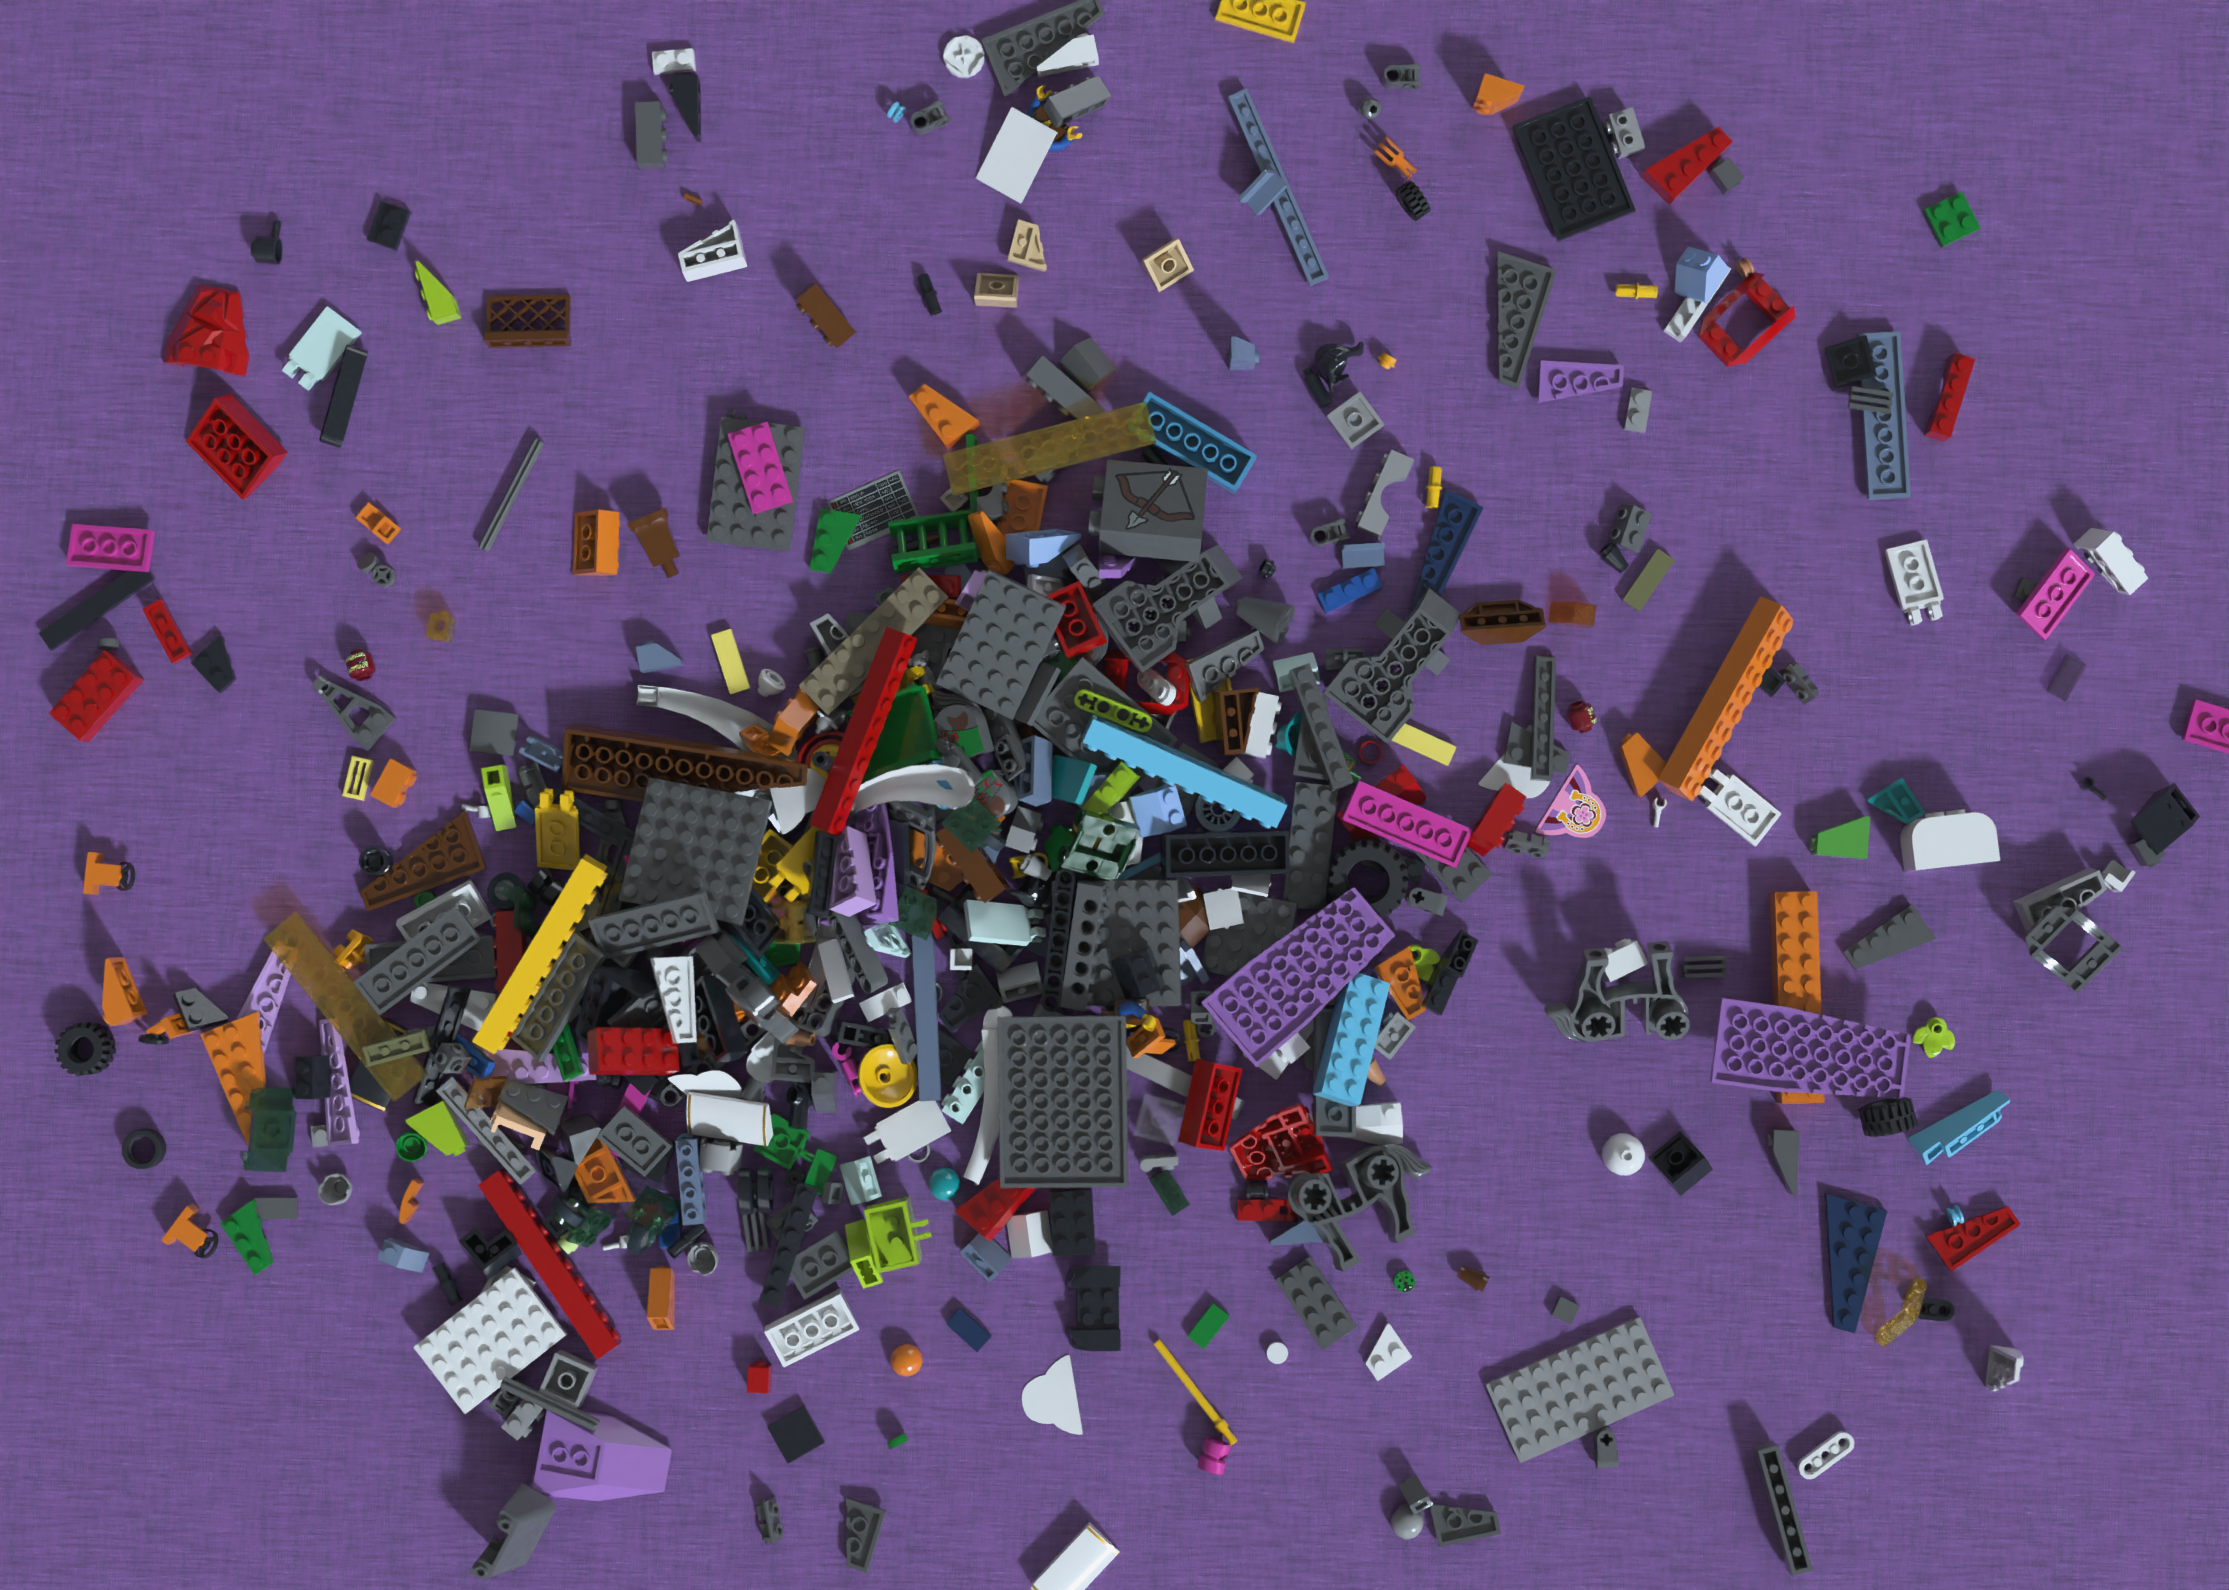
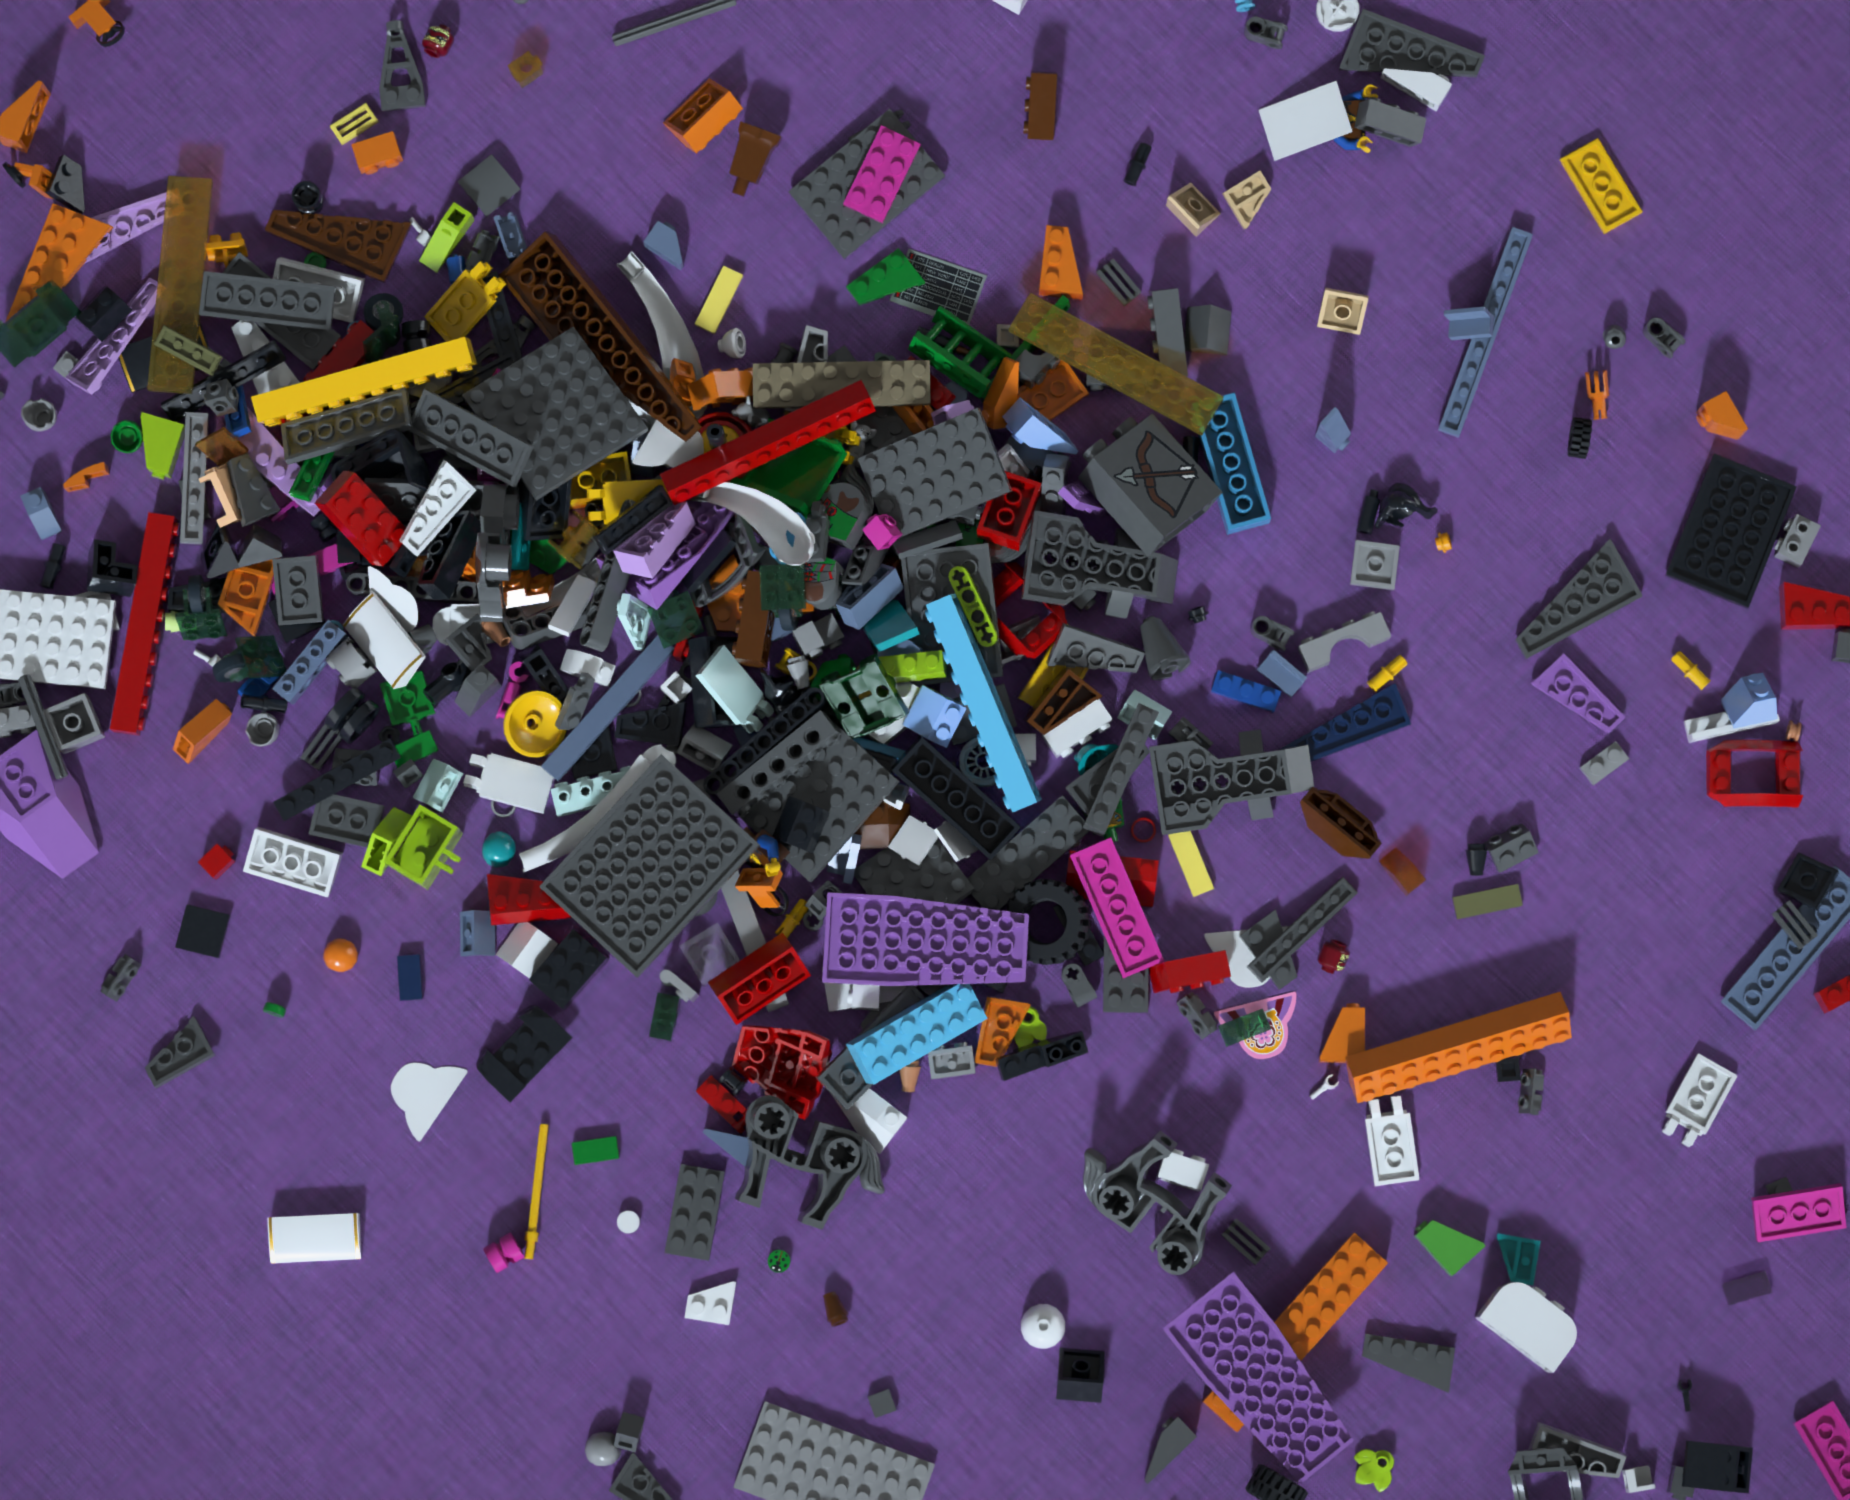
camera: 40 degrees right, 5 degrees down
(994, 389) = (1107, 268): none -> dark grey tile
(1001, 718) = (882, 531): none -> dark pink brick
(1157, 686) = (1025, 621): white plate -> none
(1567, 822) = (1244, 1027): none -> clear green slope

